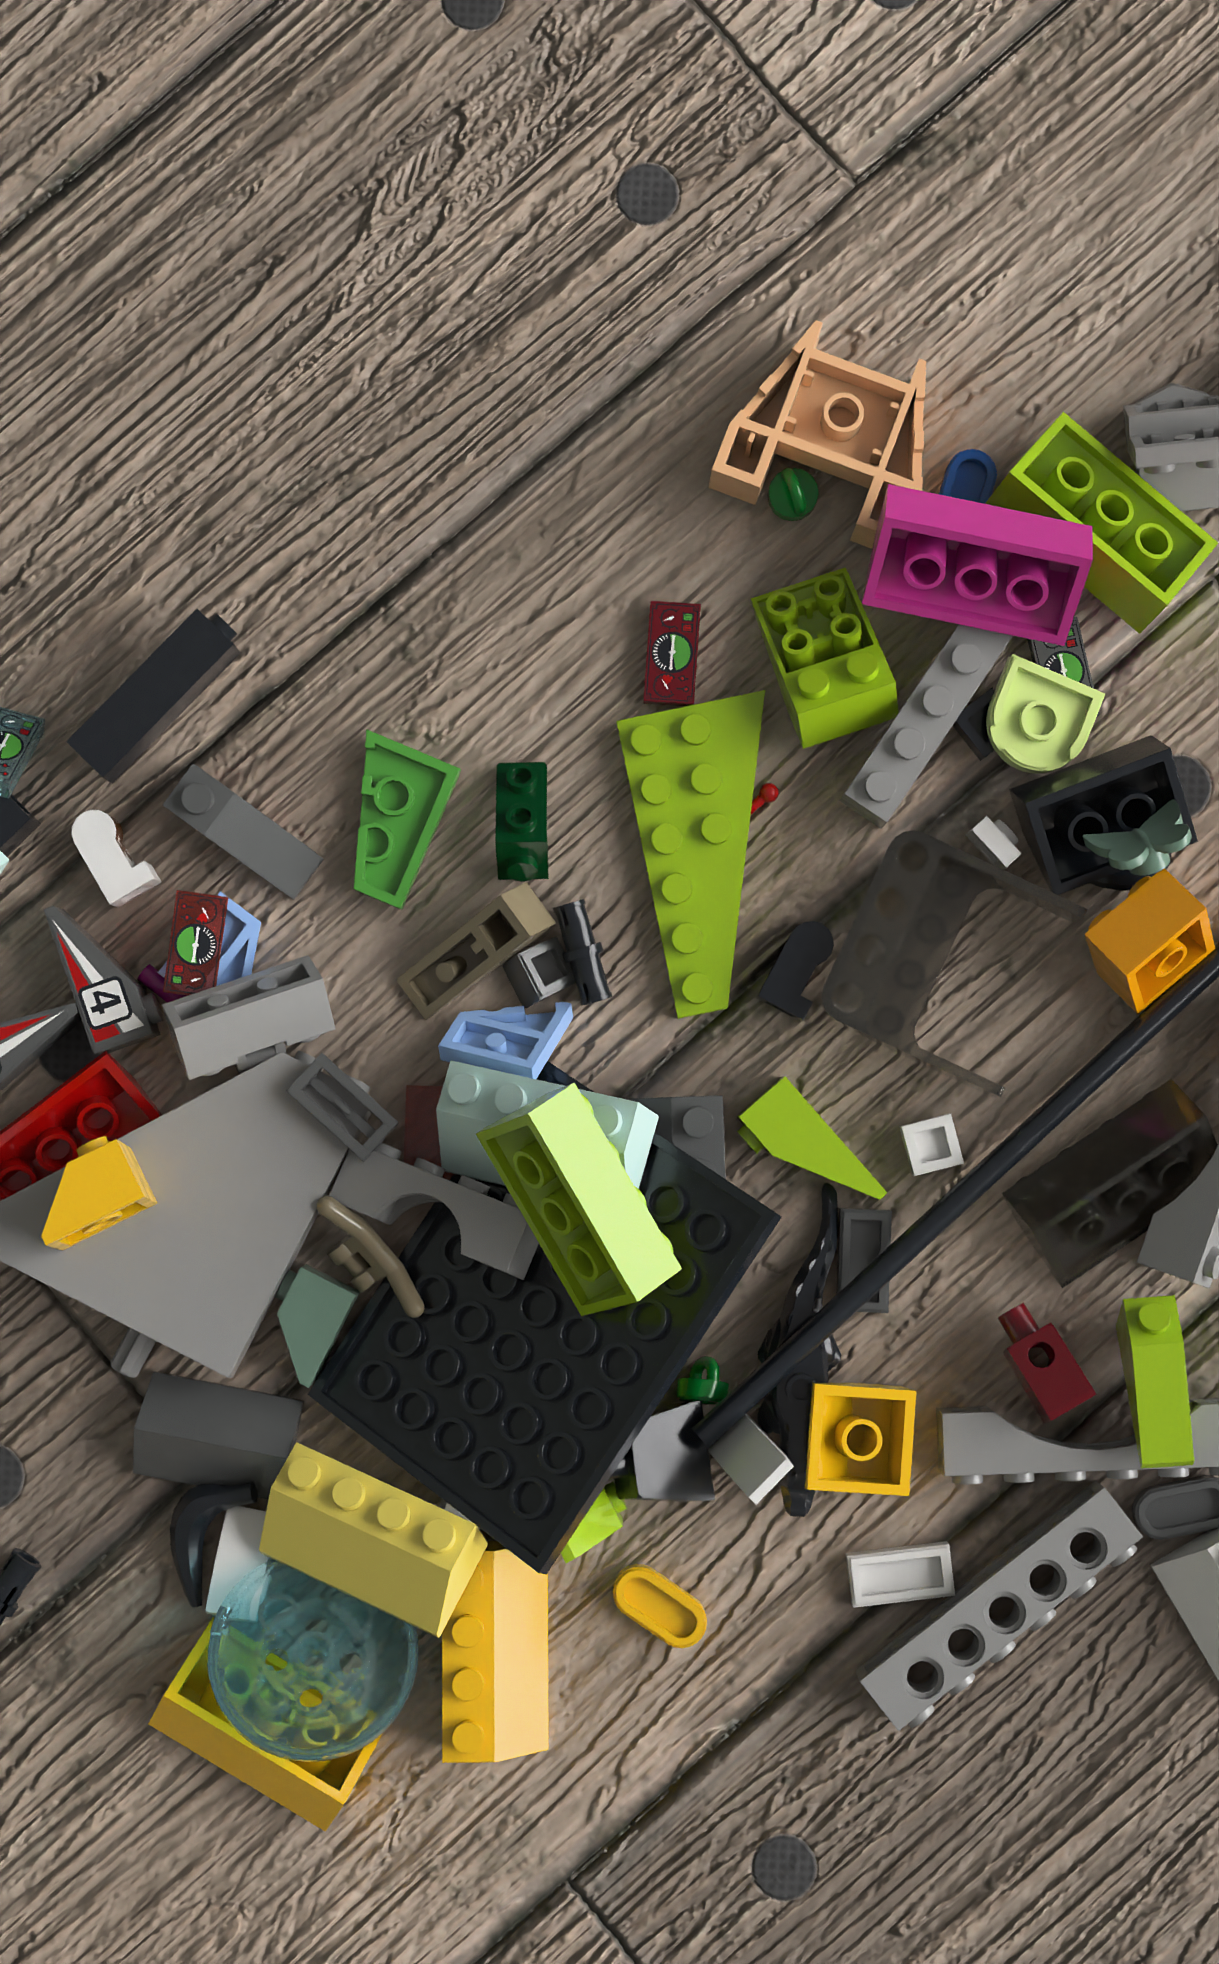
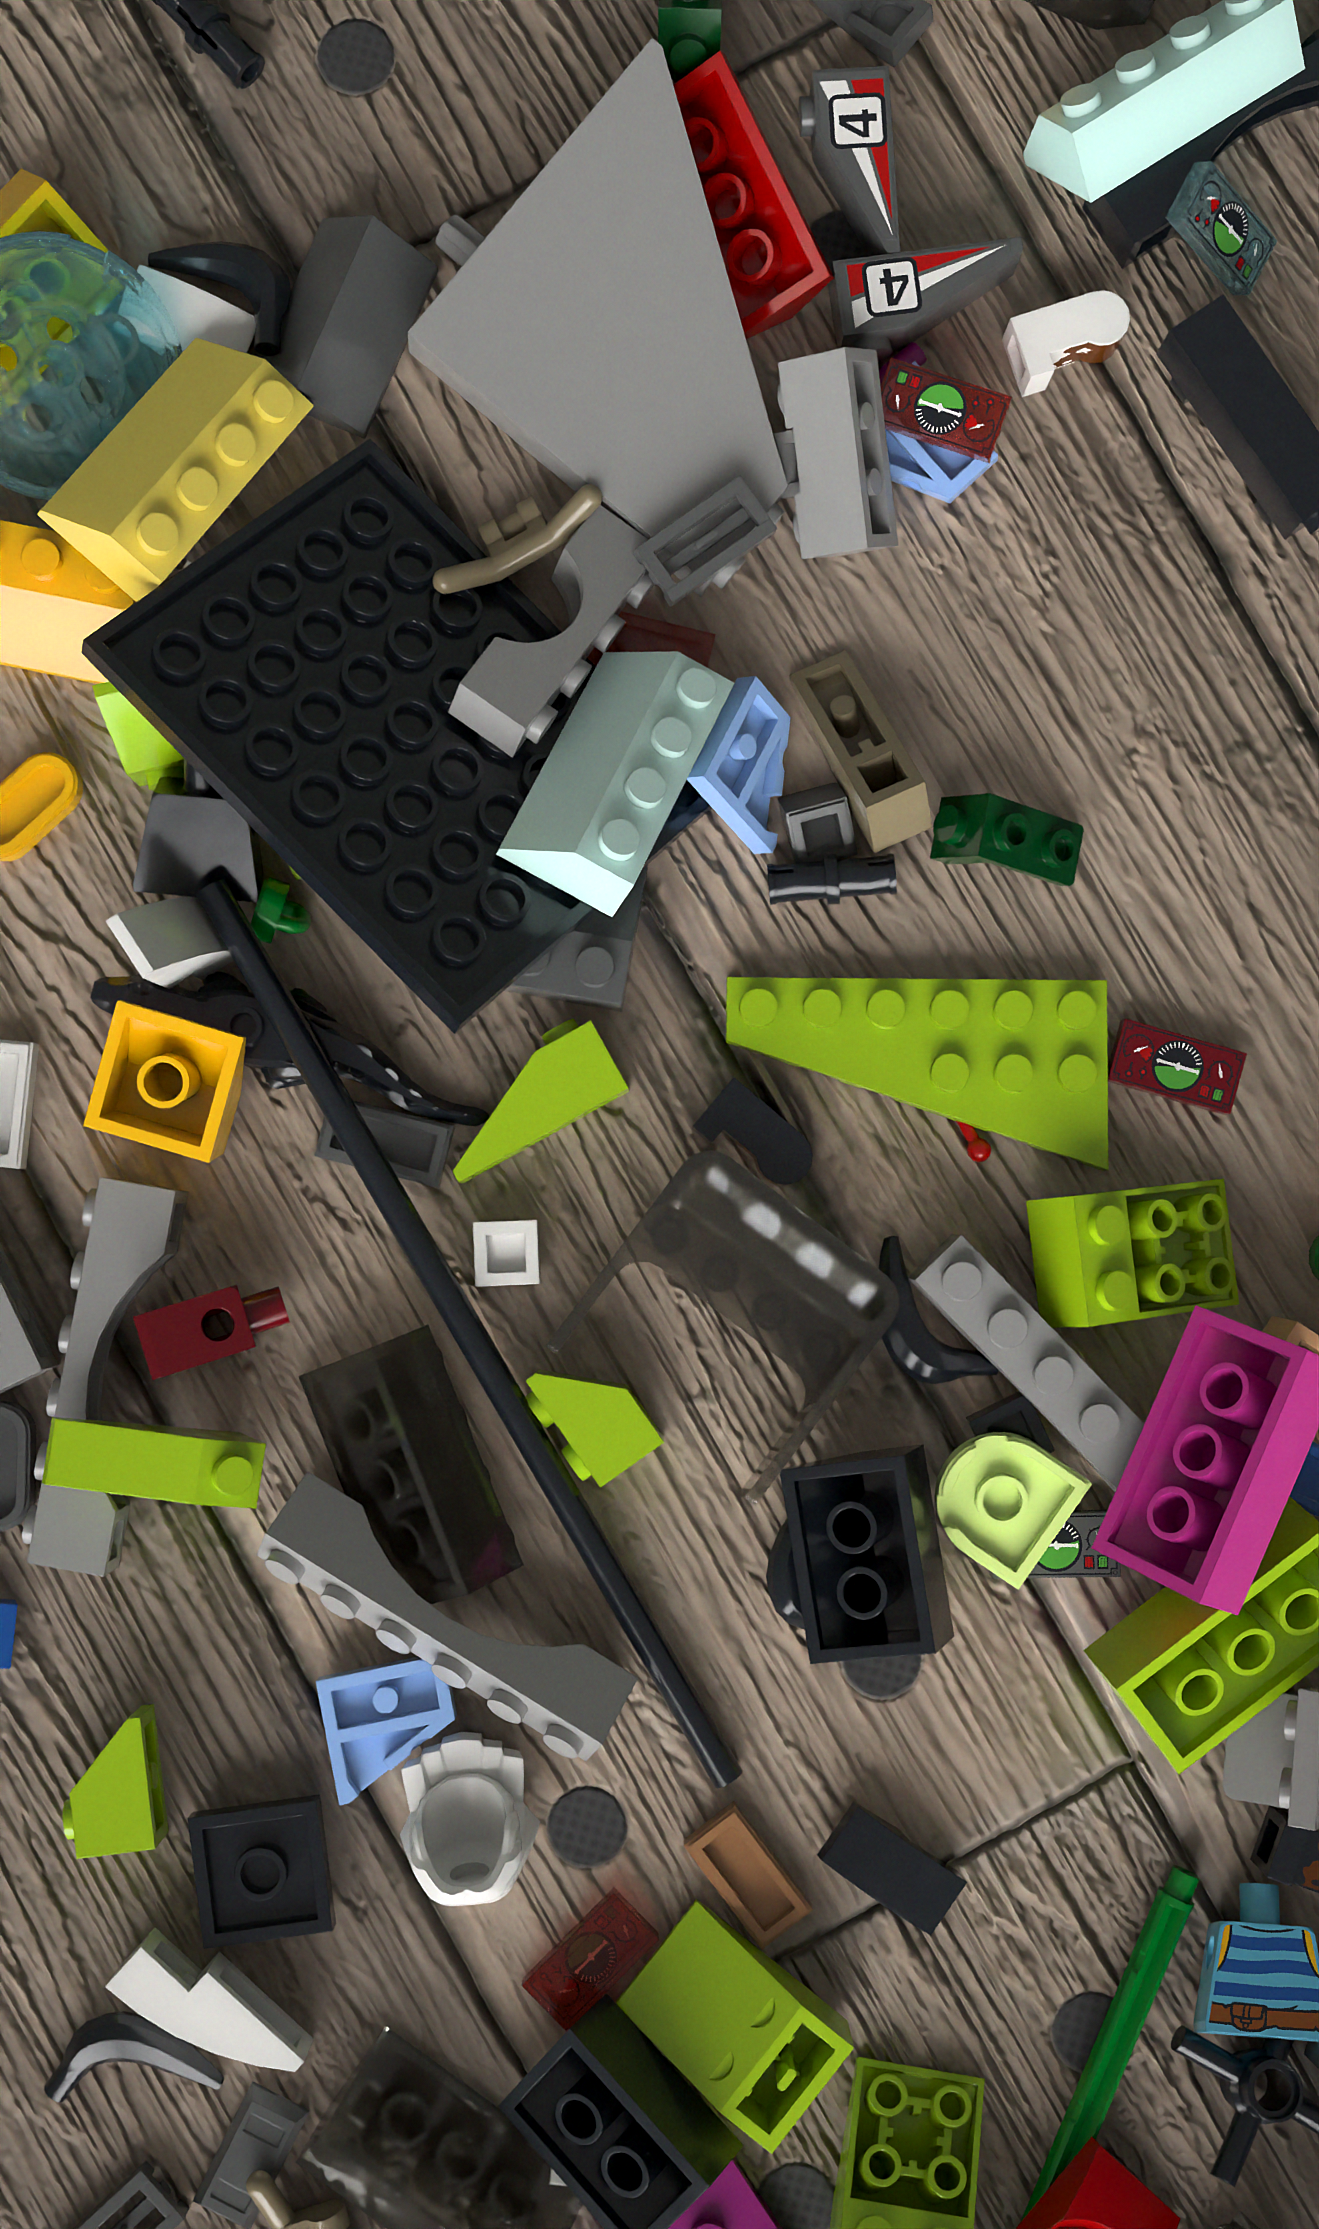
camera: 95 degrees right, 0 degrees up
(96, 1193) = (663, 206): yellow slope -> none
(243, 831) = (1066, 498): dark grey slope -> none
(312, 1317) = (458, 462): sand green slope -> none
(399, 815) = (1043, 693): bright green wing -> none
(579, 1201) = (526, 786): slope -> none
(930, 816) = (910, 1341): none -> black piece
(995, 842) = (861, 1412): white plate -> none
(1045, 1045) = (599, 1420): none -> lime slope
(1146, 848) = (816, 1593): sand green animal -> none
(1150, 939) = (701, 1575): light orange brick -> none

